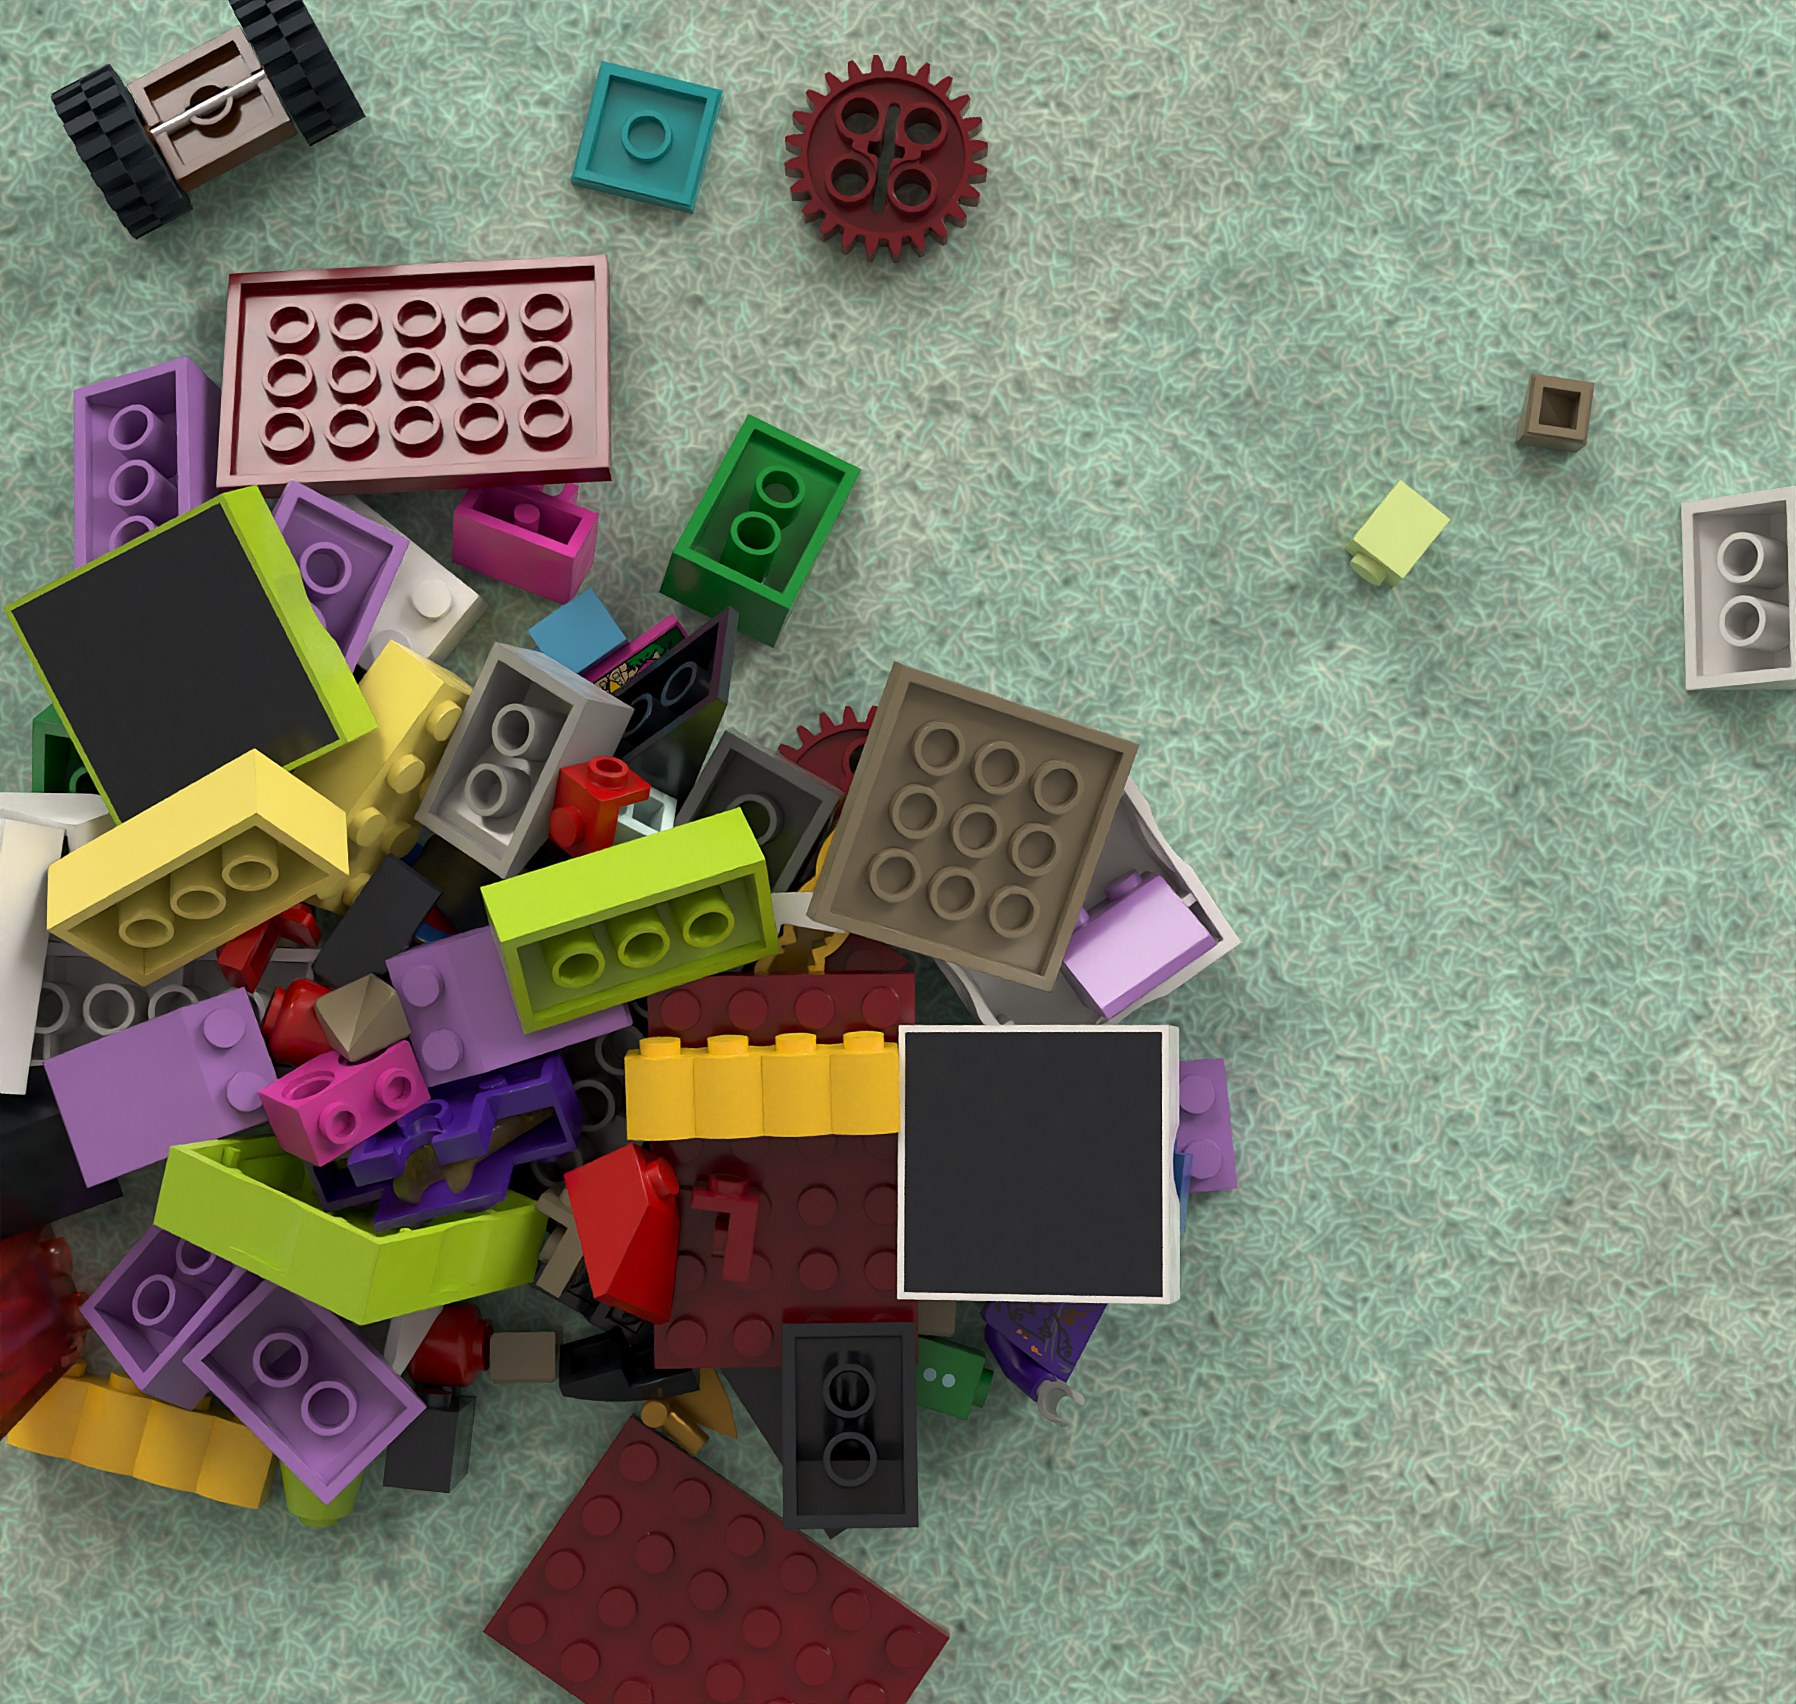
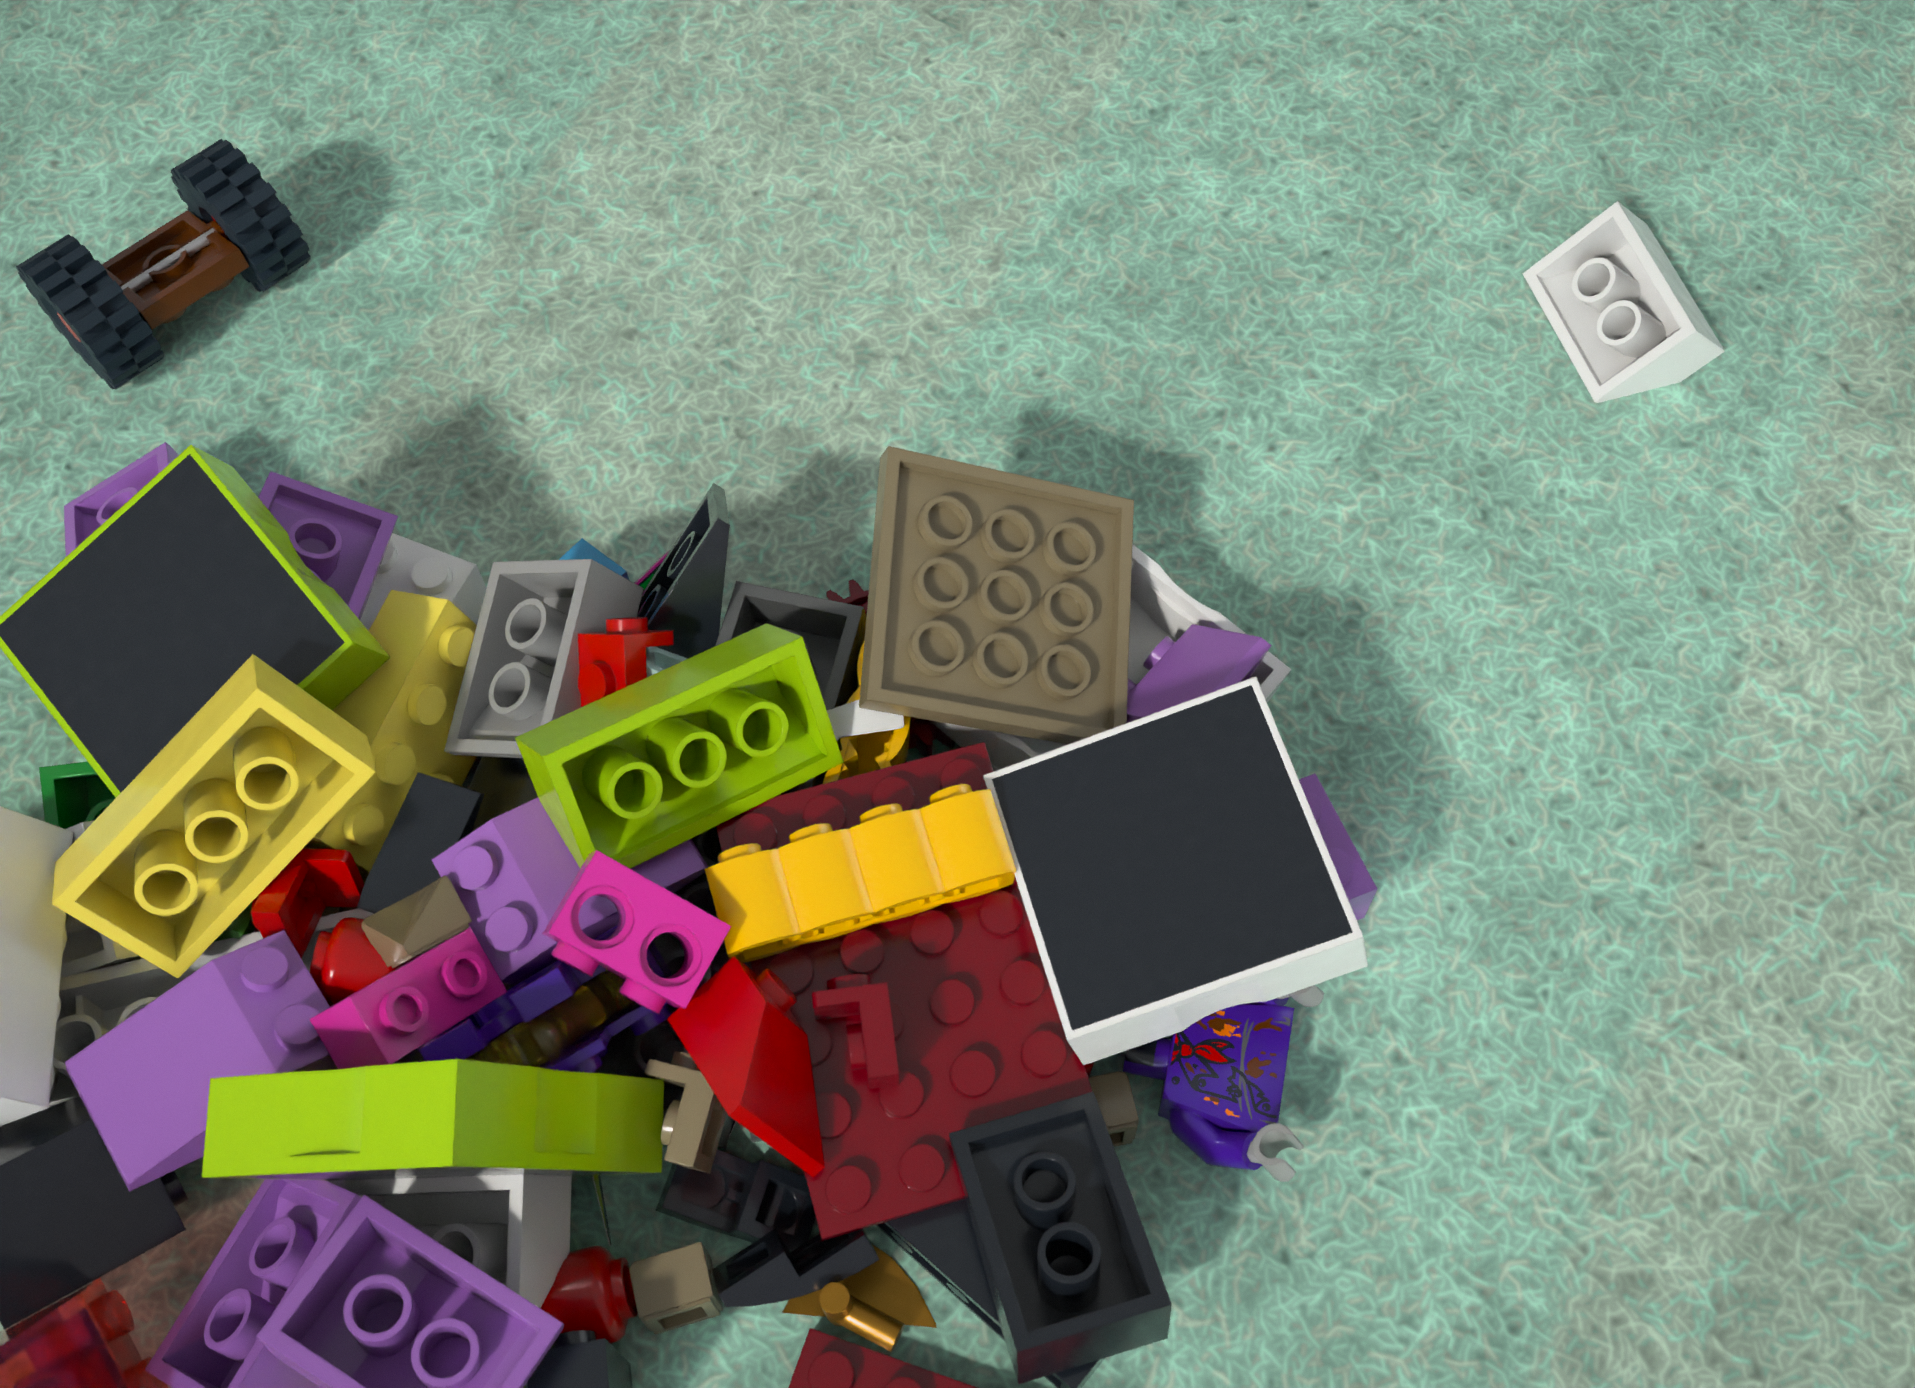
camera: 10 degrees left, 25 degrees down
(417, 377) = (399, 411): plate -> none
(526, 538) = (509, 517): dark pink brick -> none
(563, 1096) = (643, 914): none -> dark pink brick
(647, 137) = (560, 229): teal tile -> none
(759, 529) = (743, 450): green slope -> none
(940, 167) = (725, 193): dark red gear -> none
(950, 1376) = (1156, 1176): green brick -> none
(1395, 536) = (1295, 340): yellowish green brick -> none
(1555, 413) = (1390, 231): dark tan slope -> none

